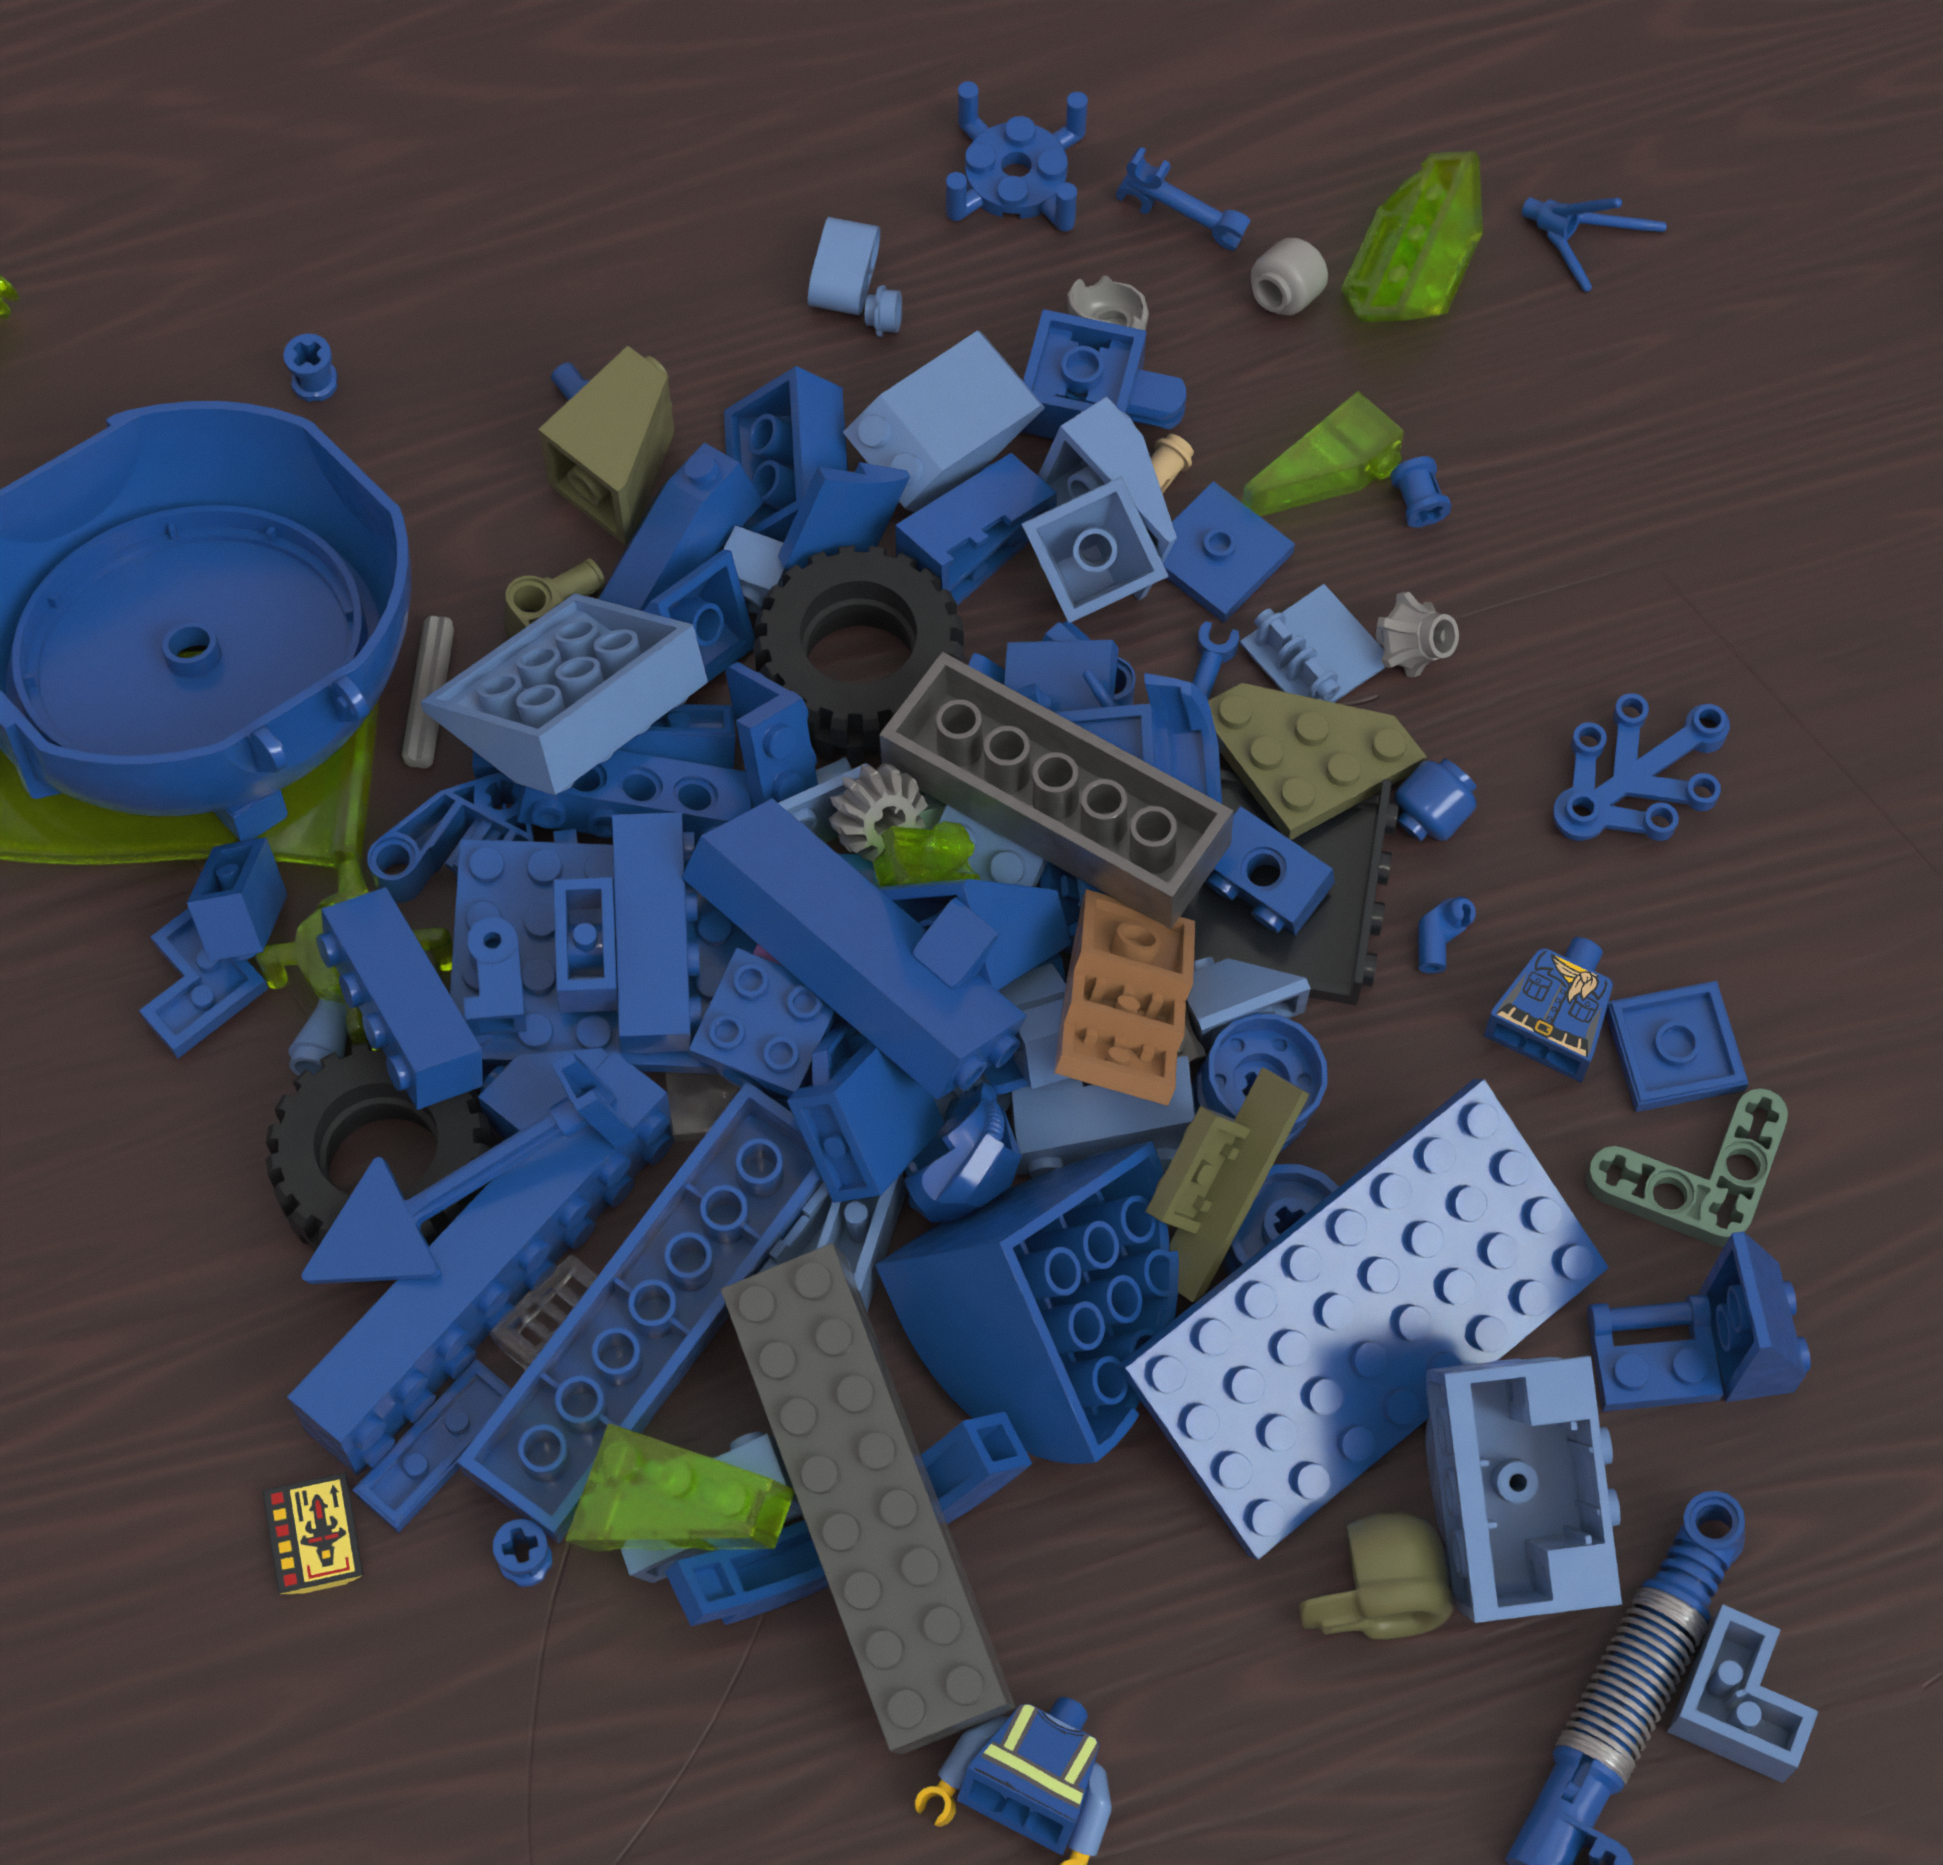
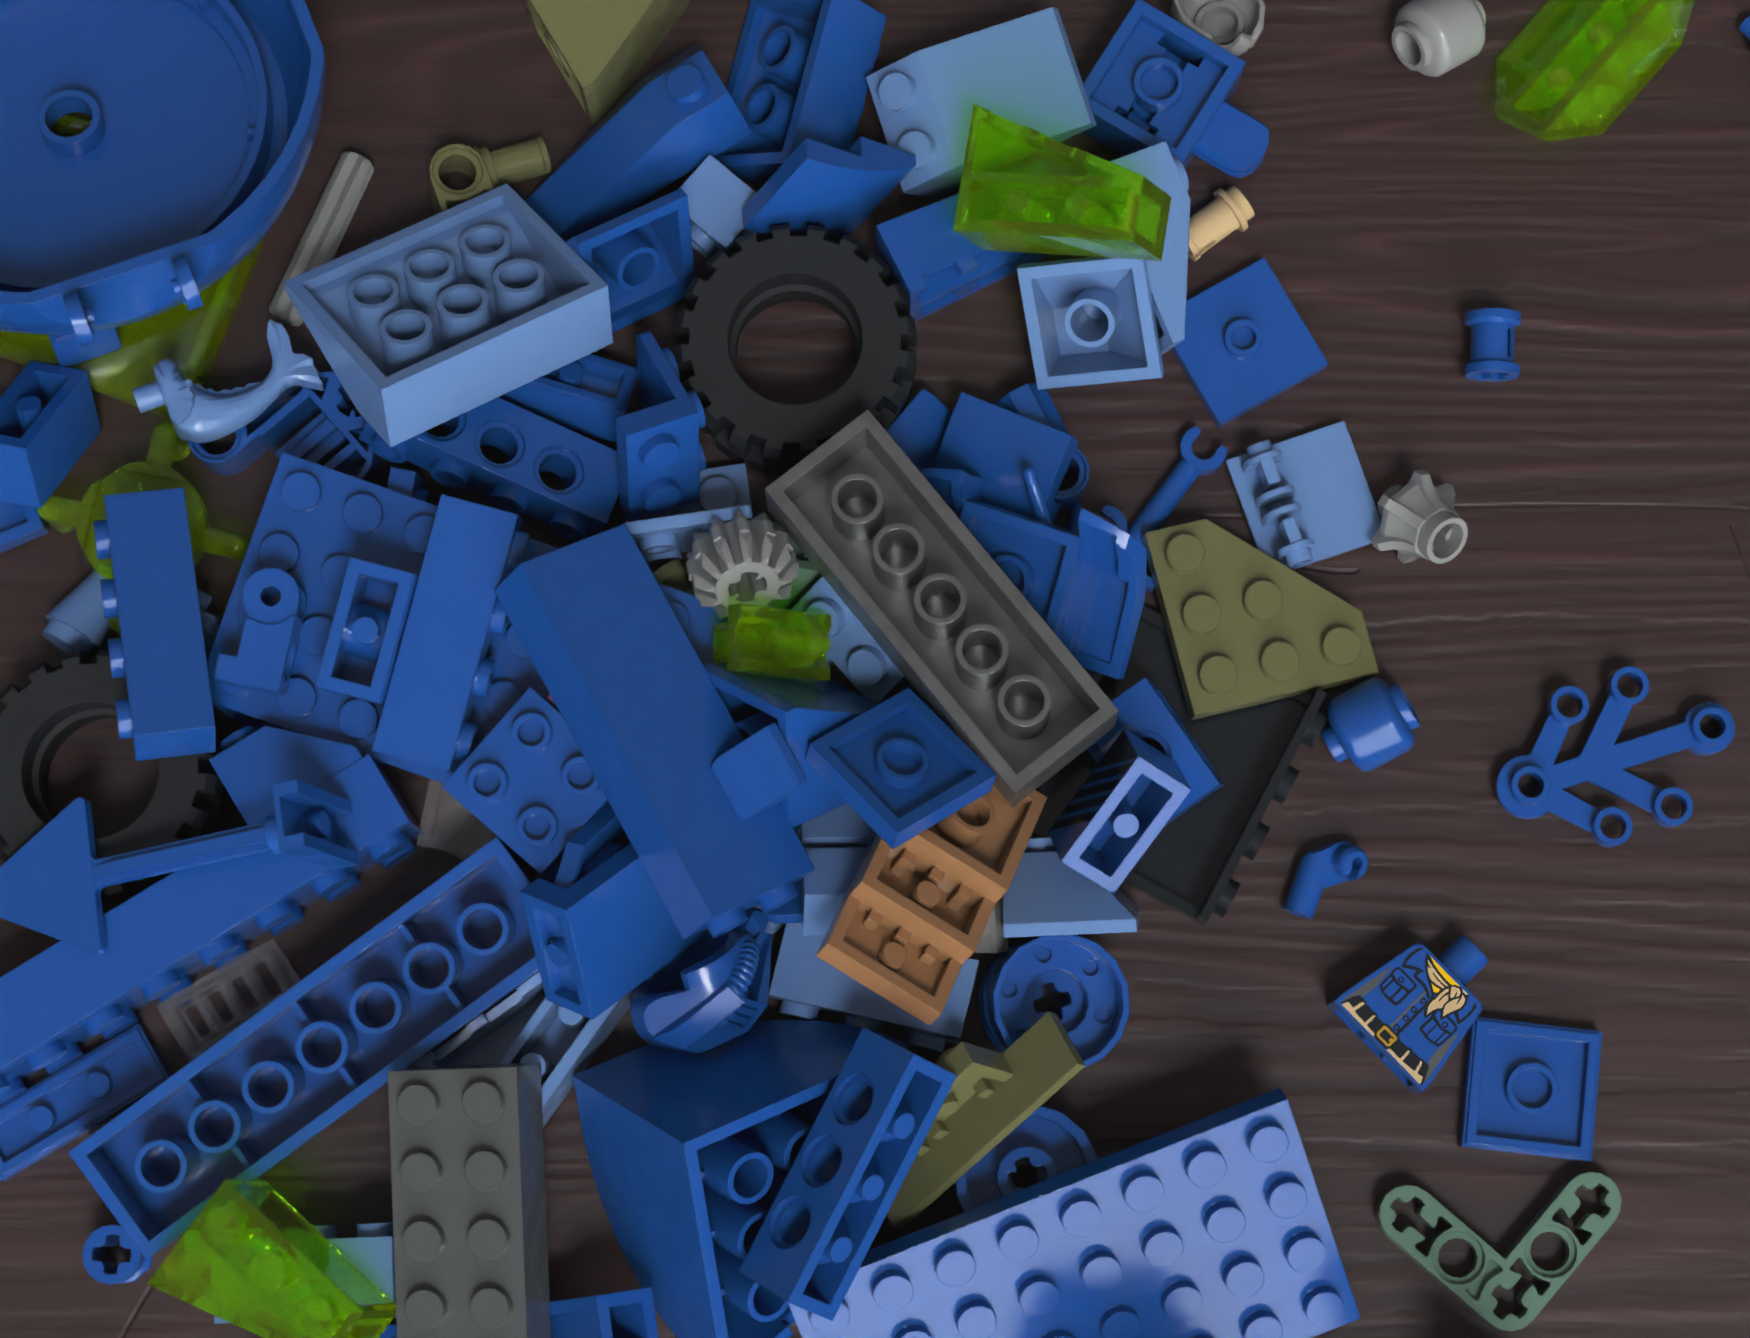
camera: 20 degrees right, 15 degrees up
(385, 838) = (210, 415): none -> medium blue animal
(1036, 454) = (1053, 198): none -> clear neon green wedge
(1070, 910) = (900, 767): none -> blue plate
(1143, 1241) = (847, 1174): none -> blue brick
(1259, 905) = (1118, 811): none -> blue brick
(1330, 460) = (1408, 274): clear neon green slope -> none

